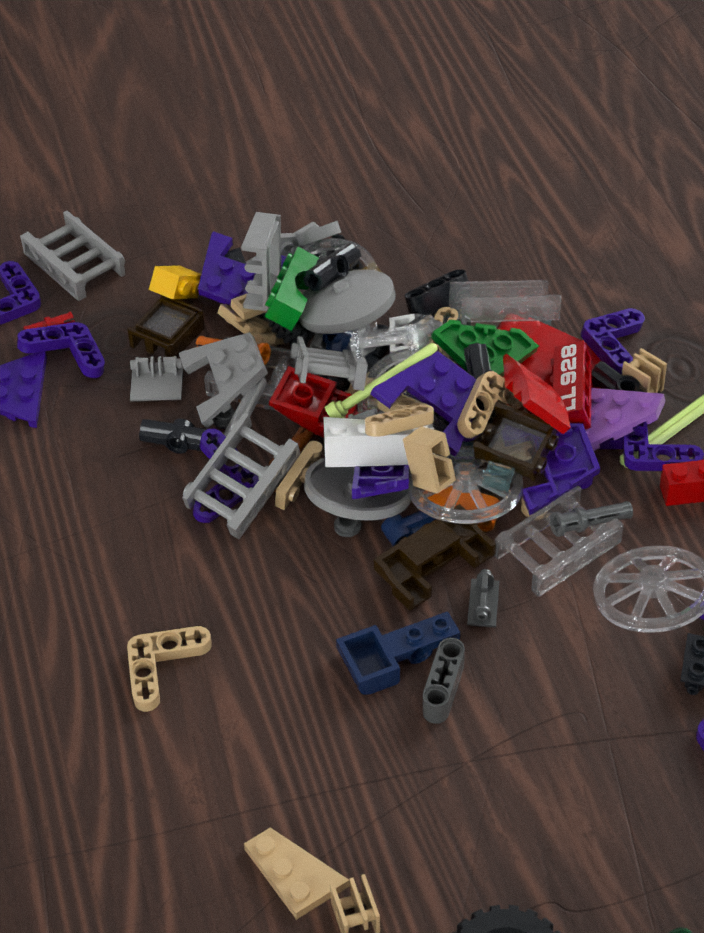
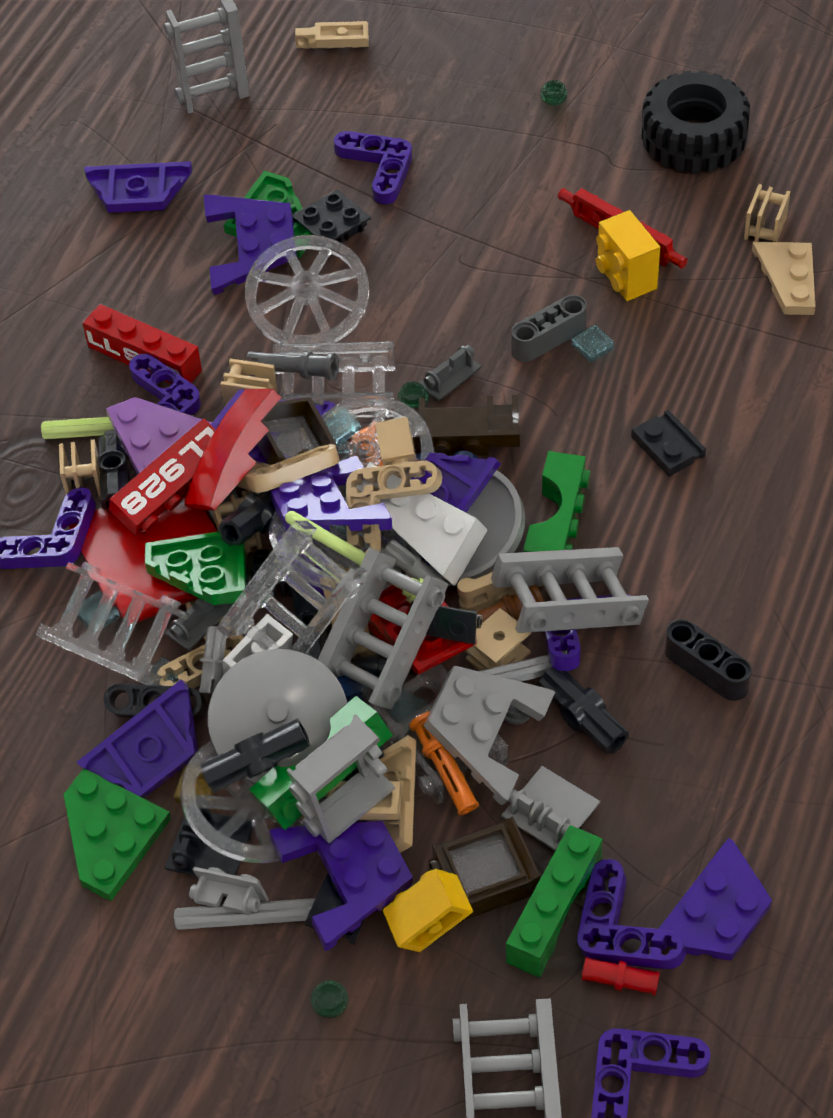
camera: 140 degrees left, 5 degrees up
(113, 333) = (542, 918): none -> green arch
(121, 506) = (714, 673): none -> black beam
(155, 653) = (777, 500): tan beam -> none
(199, 239) = (329, 999): none -> clear green plate
(271, 427) = (497, 643): none -> tan piece
(272, 651) = (668, 443): none -> black plate
(286, 394) = (455, 624): none -> black hinge
(318, 233) = (207, 861): light grey beam -> none
(319, 565) = (562, 483): none -> green arch
(375, 657) = (591, 374): dark blue plate -> none
(398, 242) = (109, 831): none -> green plate
(402, 699) = (593, 343): none -> clear light blue tile
(416, 271) = (148, 745): none -> dark purple wing
(433, 770) = (628, 255): none -> yellow brick
(472, 817) = (594, 210): none -> red plate
(495, 565) = (411, 392): none -> clear green plate
(605, 490) = (239, 378): none -> tan piece

